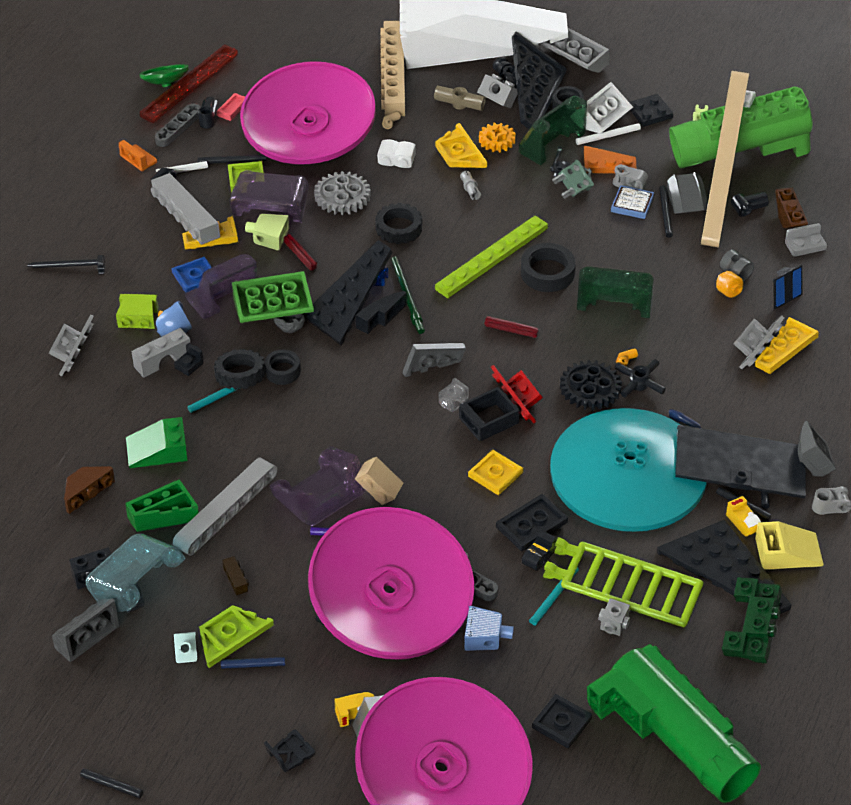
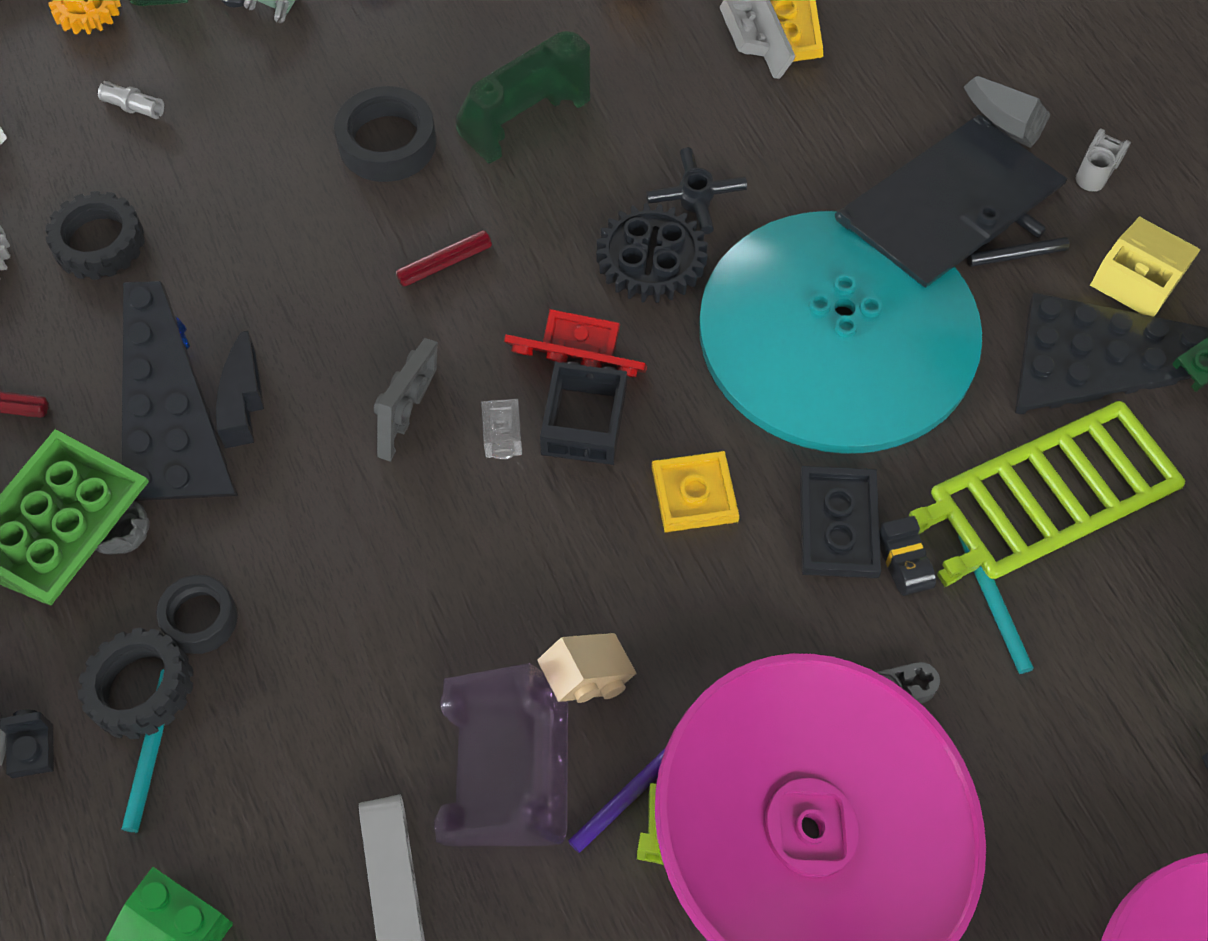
camera: 50 degrees left, 15 degrees up
(416, 317) = (297, 357): dark green bar -> none
(460, 150) = (52, 60): yellow wing -> none
(485, 629) = (1003, 751): medium blue torso -> none
(491, 256) = (286, 184): lime plate -> none
(614, 617) = (1120, 559): light grey brick -> none
(625, 356) = (635, 177): light orange arm -> none
(679, 416) = (804, 201): dark blue piece -> none
(742, 516) = (1051, 270): yellow leg -> none

